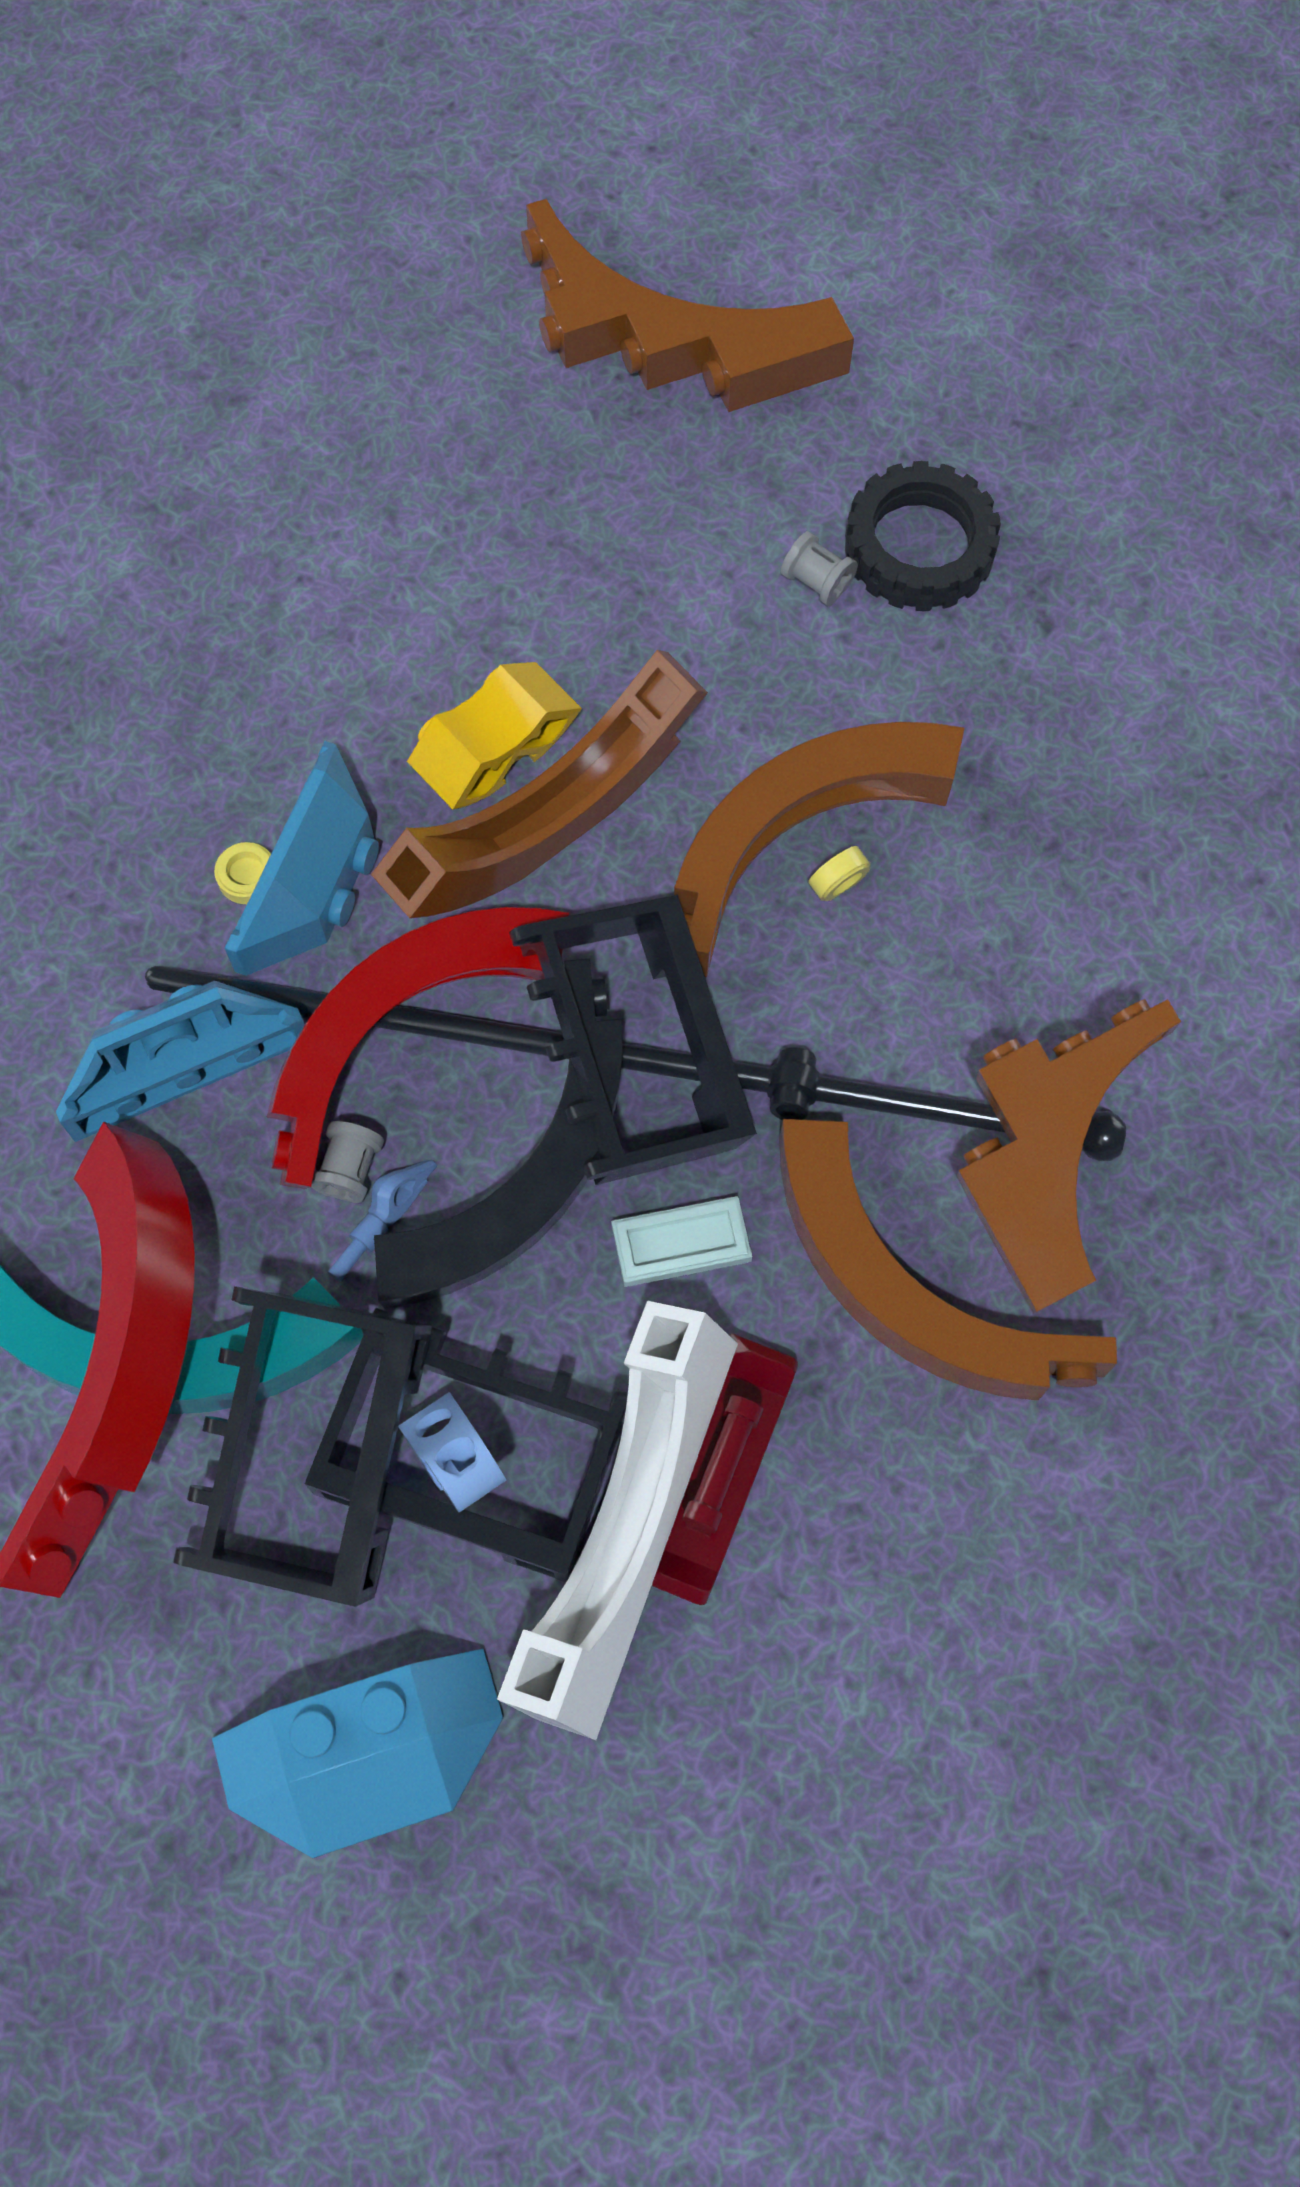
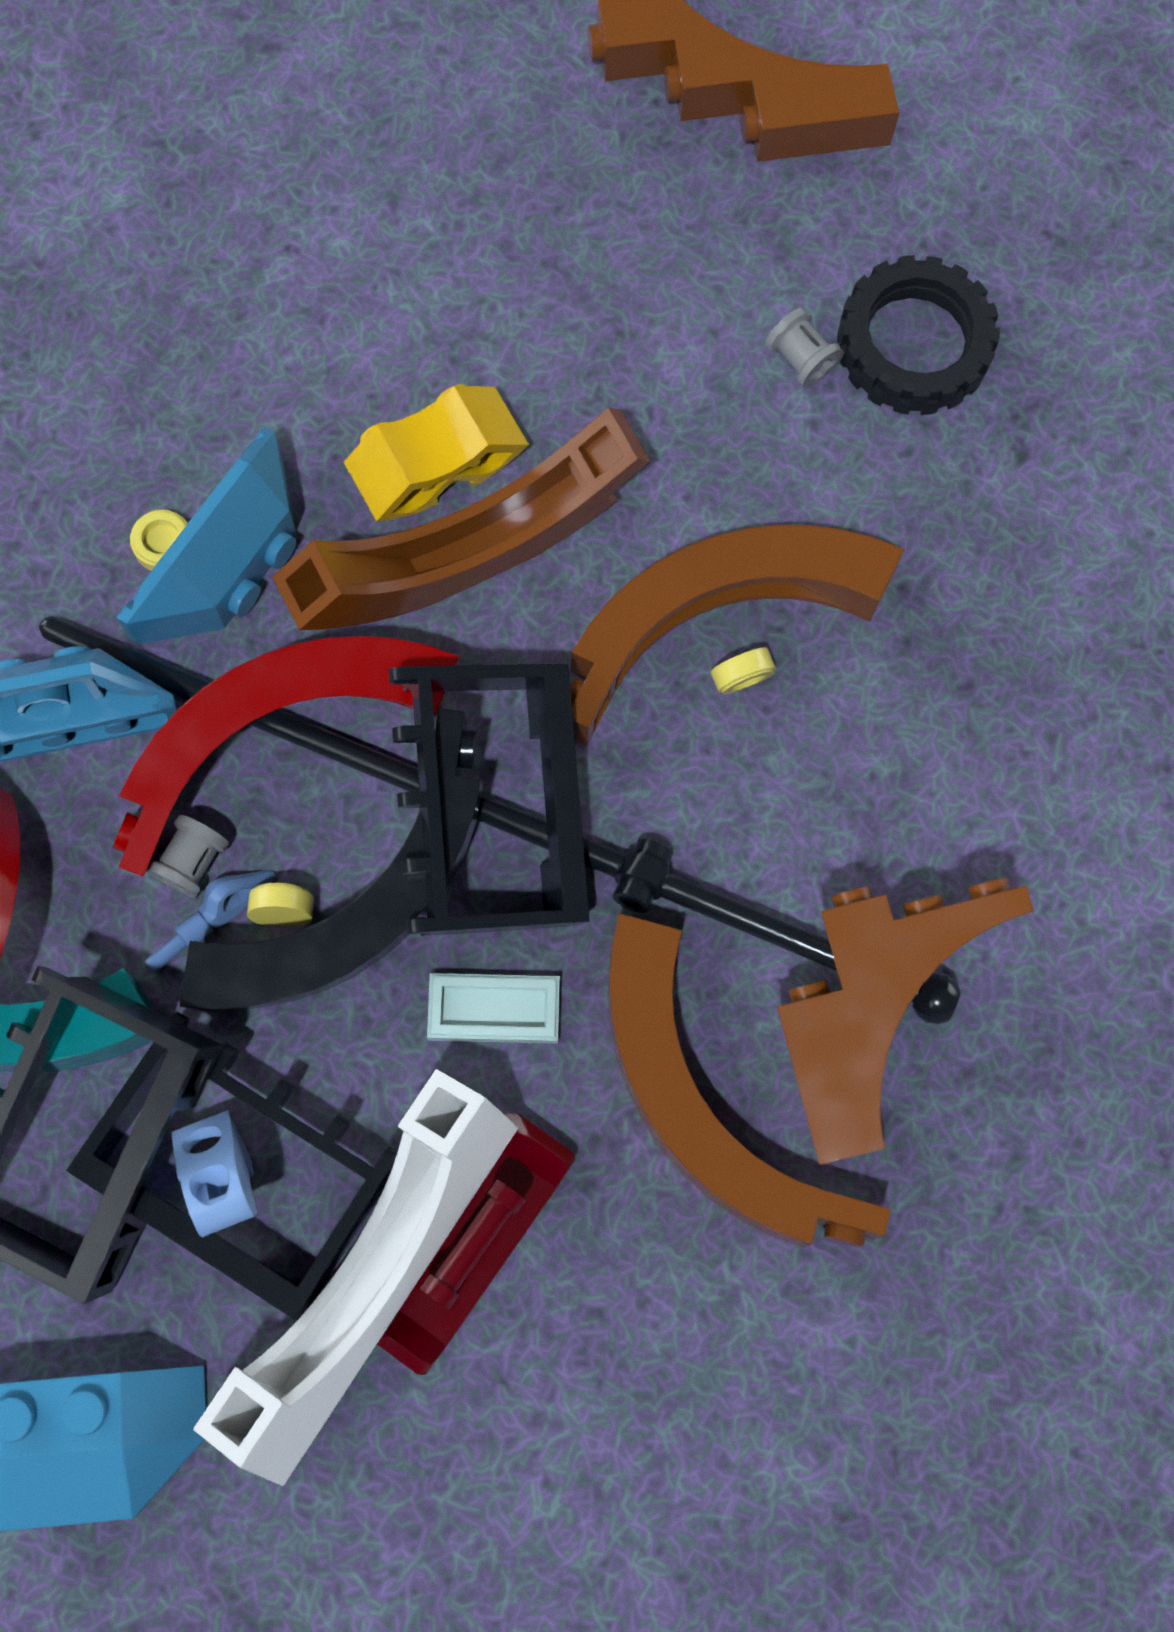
camera: 10 degrees right, 5 degrees up
(449, 1188) = (280, 905): none -> light yellow tile

